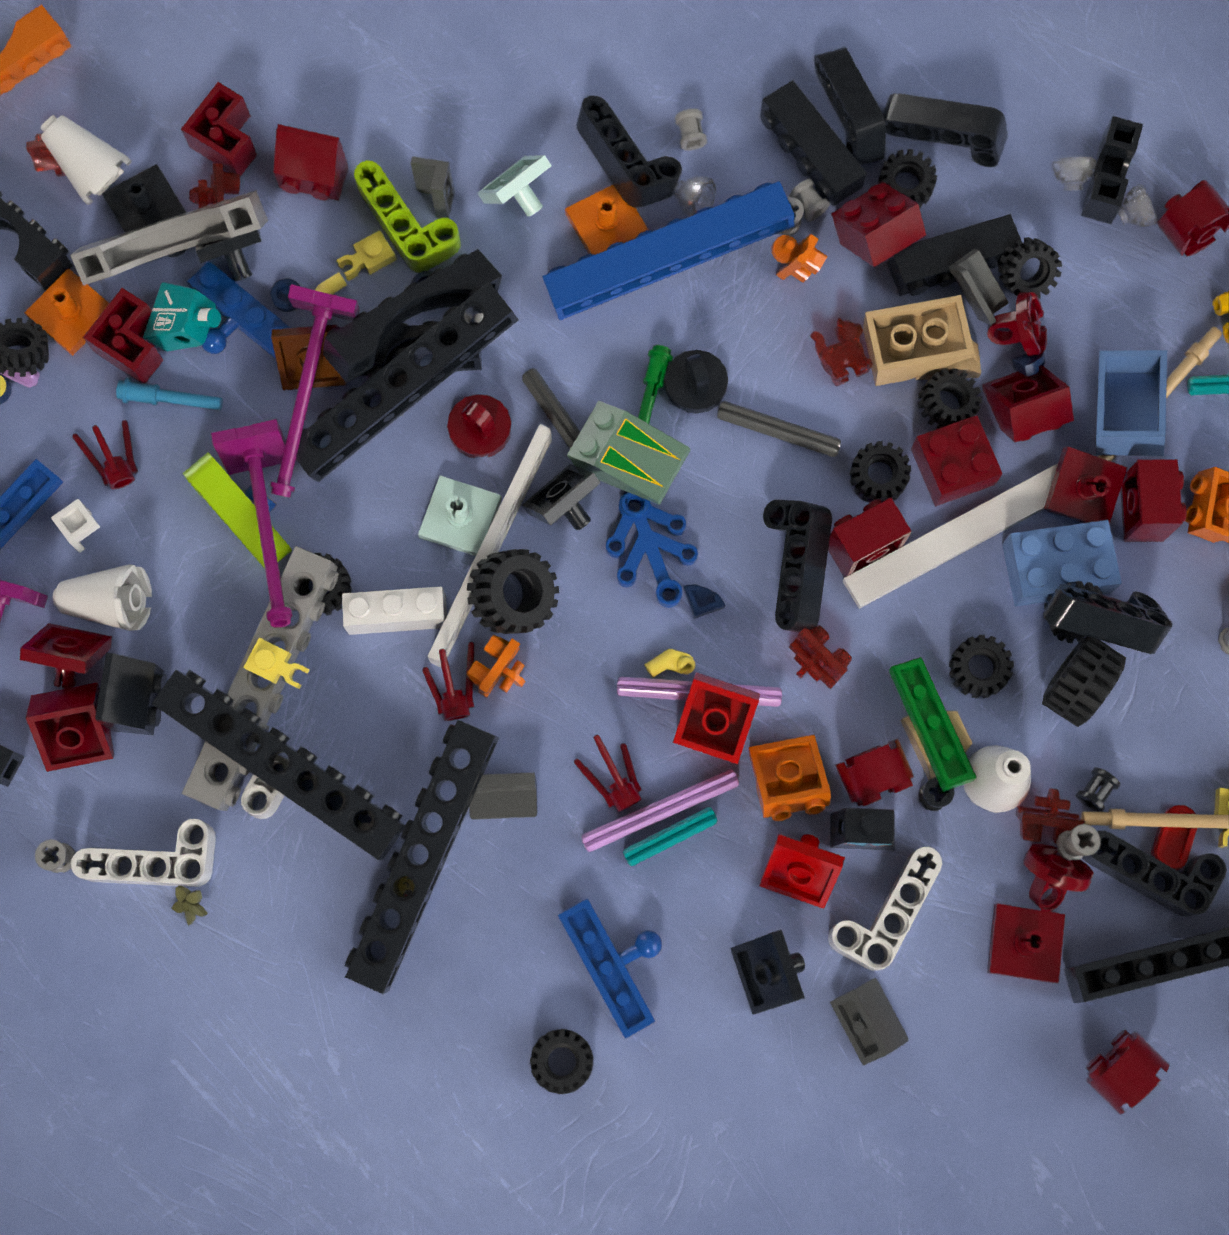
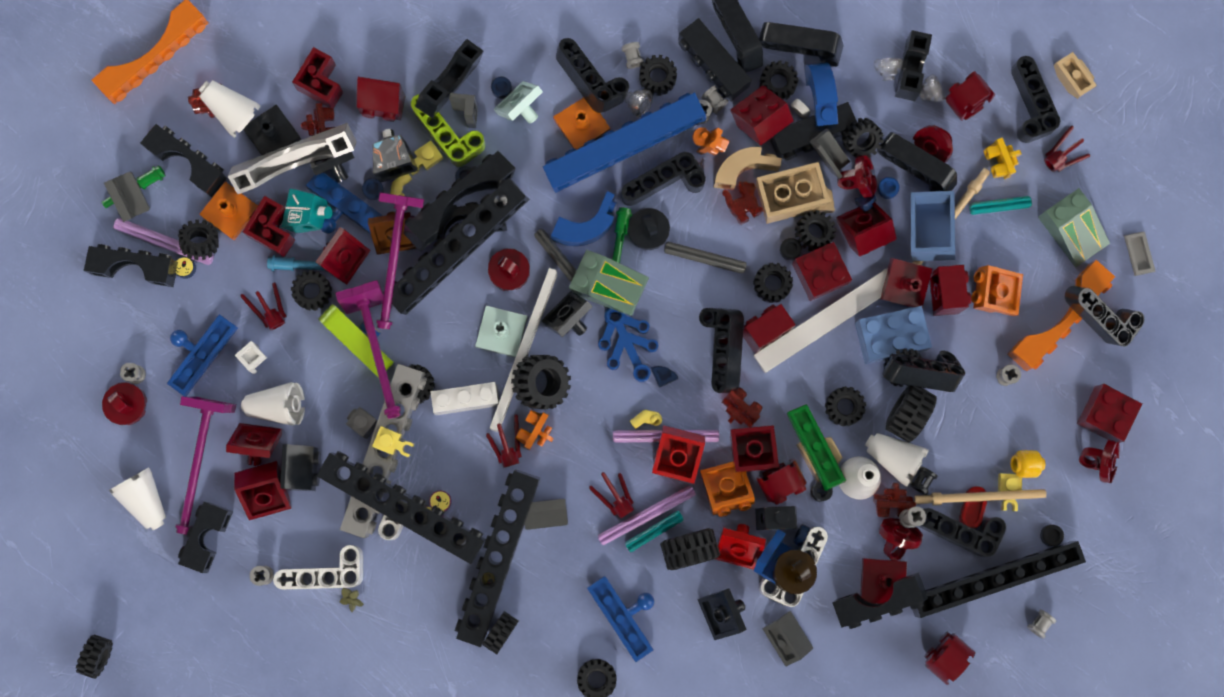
camera: 10 degrees left, 5 degrees up
(171, 418) = (298, 290): none -> black tyre
(230, 385) = (343, 255): none -> dark red tile
(232, 634) = (361, 422): none -> flat silver brick
(318, 249) = (392, 157): none -> black torso
(344, 761) = (441, 500): none -> light yellow tile
(415, 973) = (500, 632): none -> black tyre
(437, 122) = (459, 68): none -> black arch
(491, 163) = (501, 87): none -> dark blue tile
(602, 378) = (588, 232): none -> blue arch
(720, 314) = (661, 182): none -> black beam
(723, 865) = (690, 549): none -> black tyre
(731, 144) = (661, 63): none -> black tyre
(835, 717) = (754, 448): none -> dark red slope
(846, 291) = (742, 161): none -> tan arch
(856, 891) = (774, 549): none -> blue panel
(887, 913) = (794, 572): none -> dark brown tile
(900, 859) = (801, 535): none -> dark blue tile
(909, 425) = (790, 249): none -> black tile
(937, 221) = (800, 108): none -> white tile
(975, 193) = (824, 92): none -> blue arch
(1058, 748) = (897, 456): none -> white cone
(1062, 959) = (906, 592): none -> black arch
(1064, 346) = (888, 188): none -> blue tile
(1113, 309) = (918, 163): none -> black beam
(1135, 287) = (934, 141): none -> dark red tile

